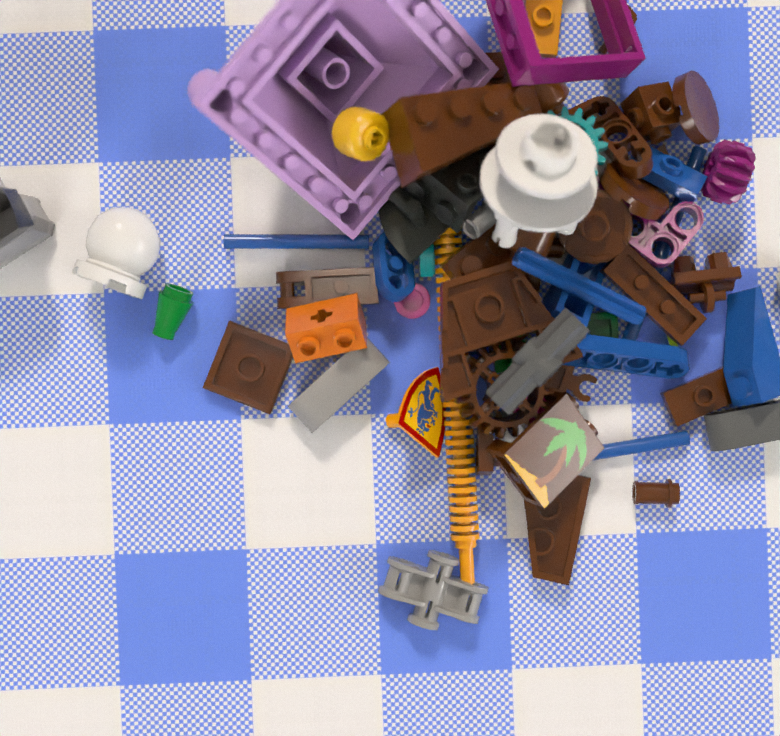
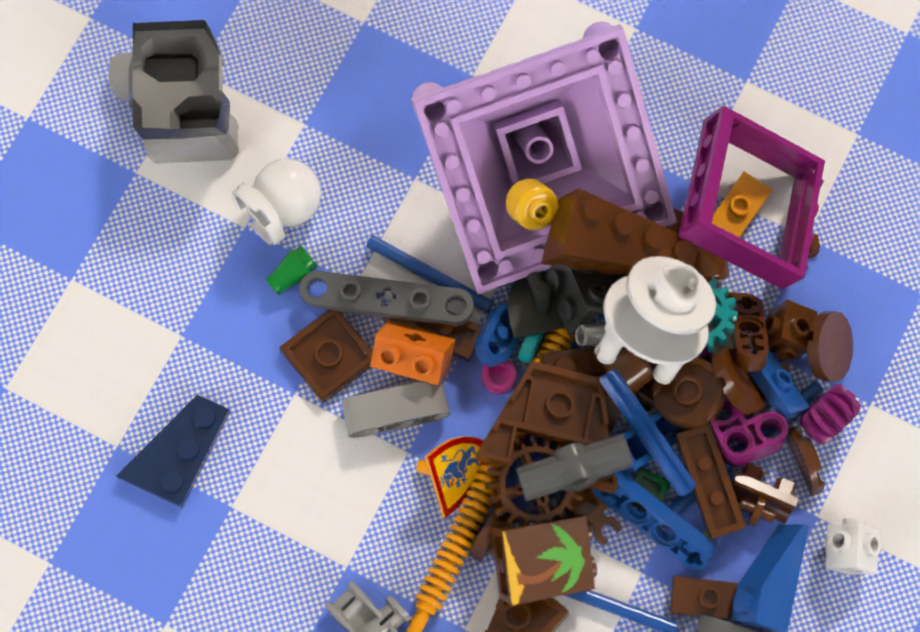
camera: 30 degrees right, 15 degrees down
(171, 531) = (178, 452): none -> dark blue wing
(247, 298) = (412, 301): none -> dark grey piece
(725, 224) = (806, 459): none -> reddish brown tile

